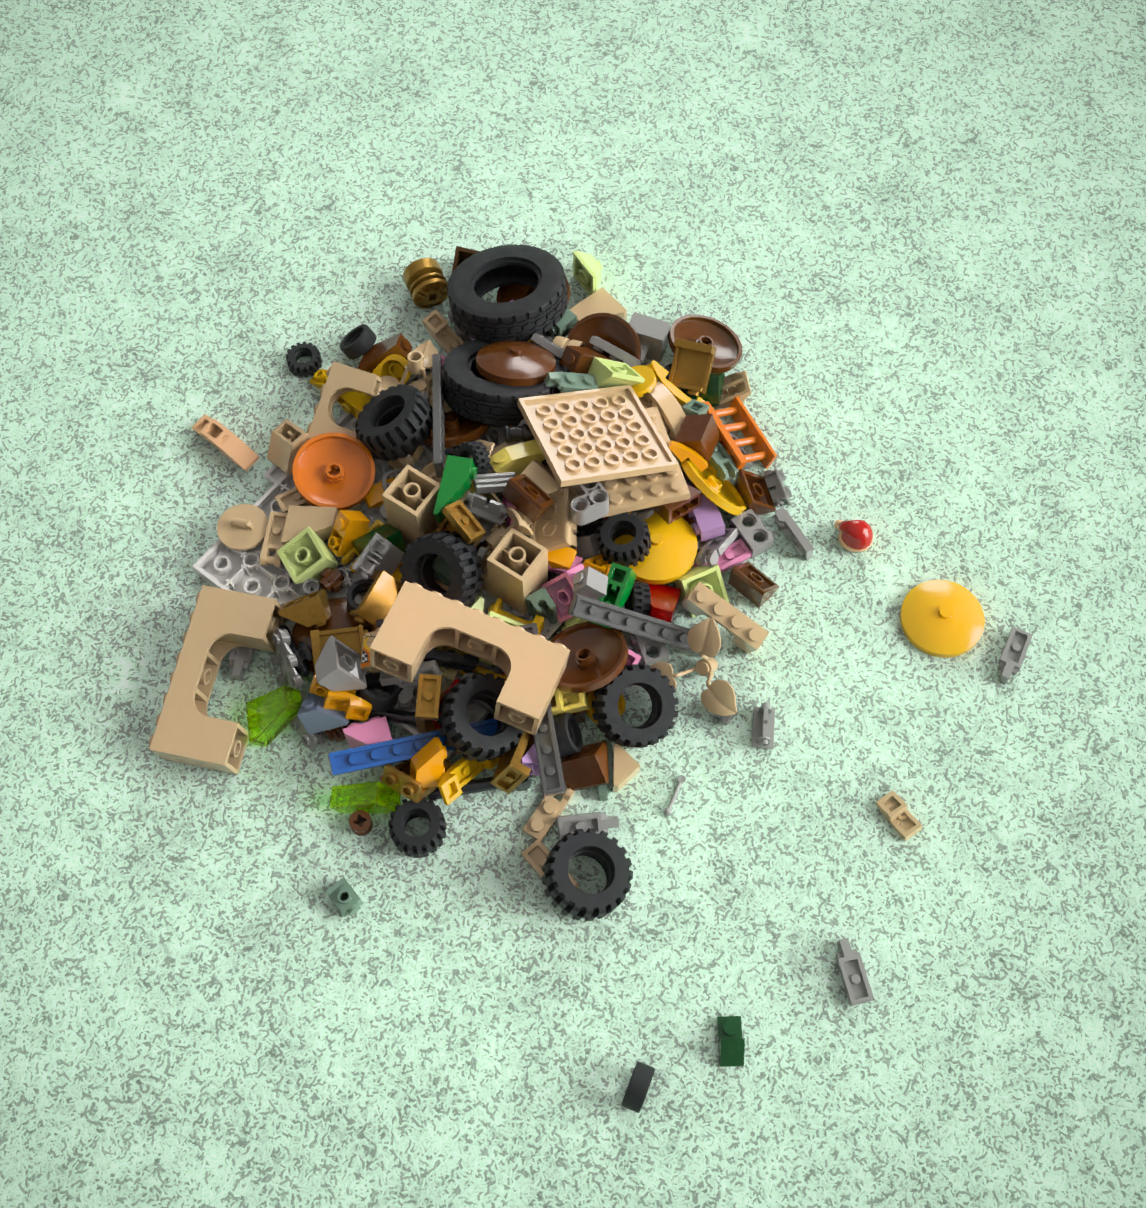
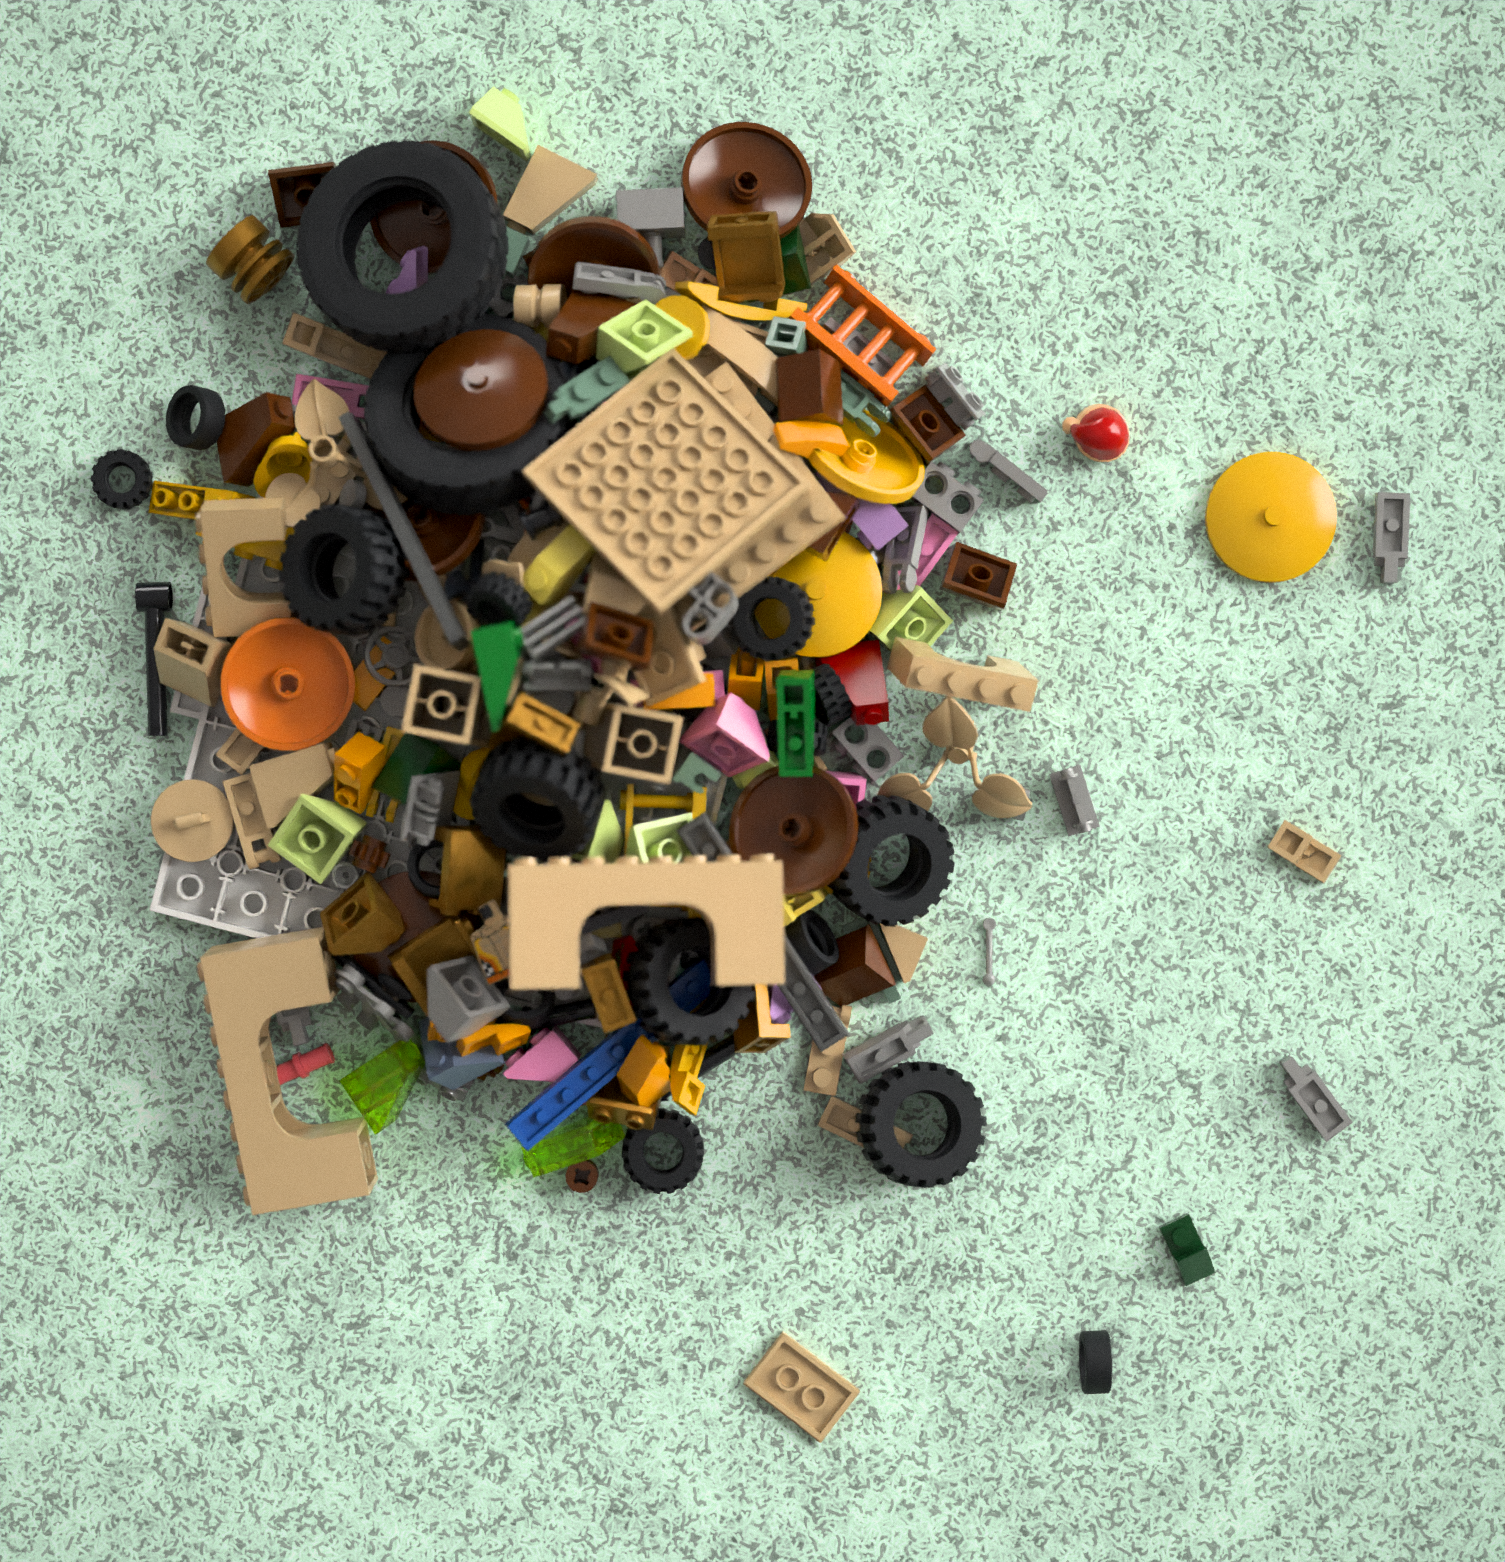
camera: 20 degrees left, 25 degrees up
(225, 441) = (80, 681): light nougat slope -> none
(231, 689) = (303, 1064): none -> coral pin
(263, 463) = (153, 600): none -> black piece
(348, 906) = (609, 1272): sand green brick -> none
(434, 1022) = (801, 1386): none -> tan tile
(547, 344) = (516, 324): light grey tile -> none
(590, 583) = (758, 726): light grey brick -> none
(629, 621) = (841, 750): dark grey tile -> none

